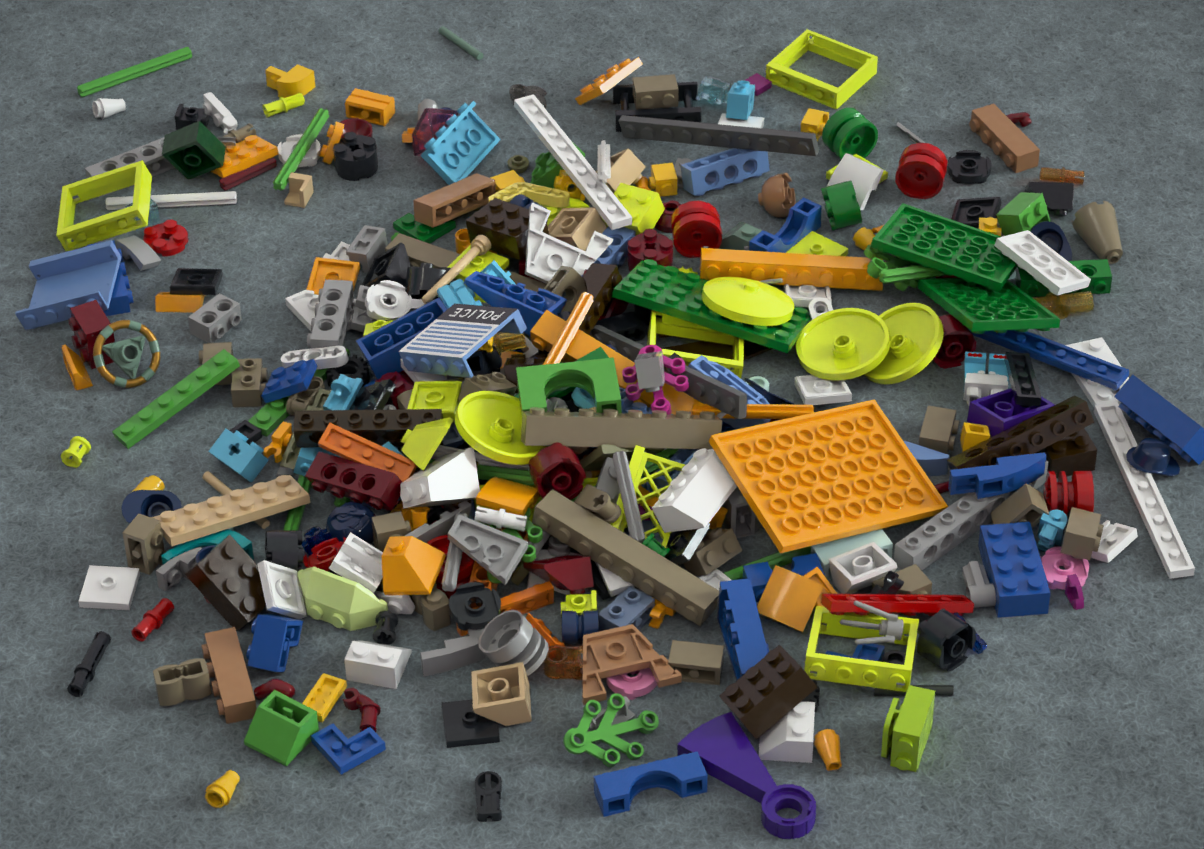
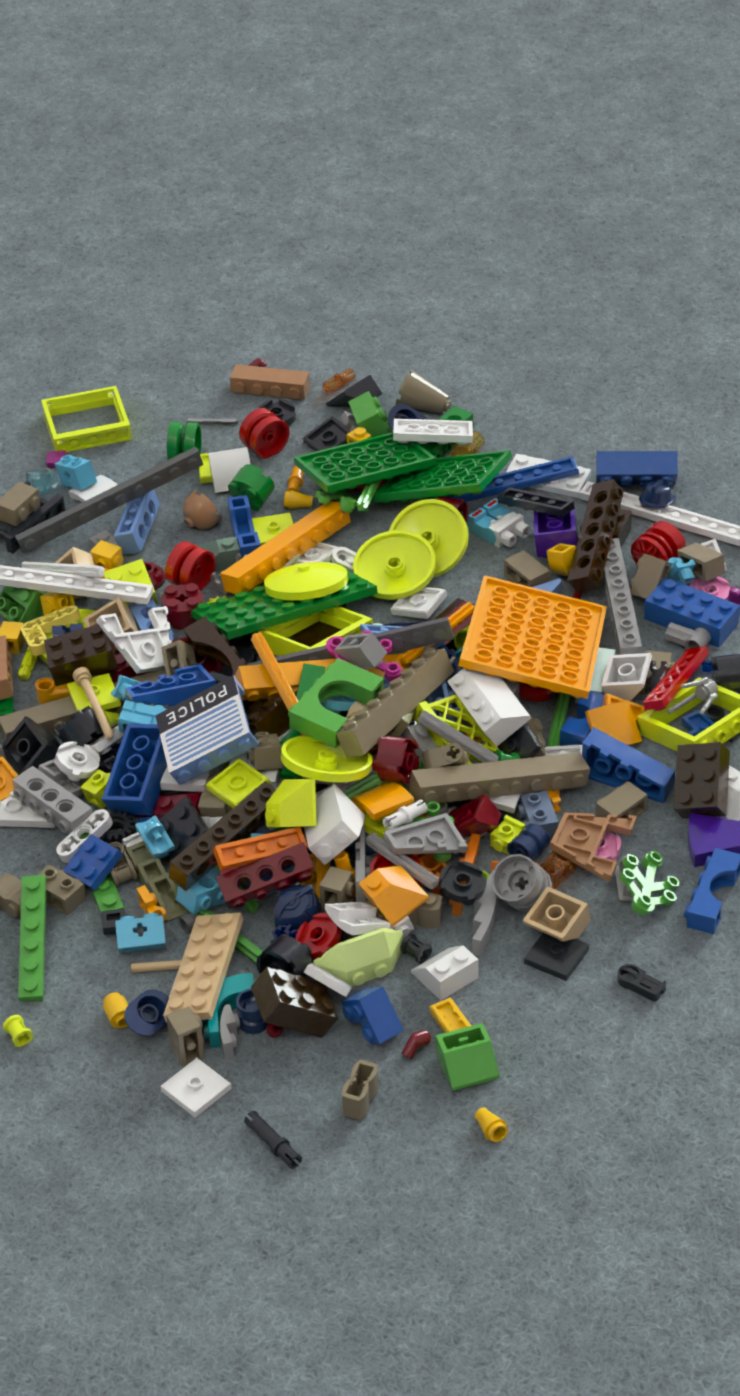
camera: 50 degrees left, 0 degrees up
(152, 619) = (264, 1077): red pin -> none
(230, 675) = (395, 1064): medium nougat brick -> none
(345, 752) = (520, 1036): blue plate -> none
(367, 708) = (490, 1001): dark red piece -> none
(814, 122) = (141, 456): yellow brick -> none
(993, 480) = (619, 563): blue slope -> none

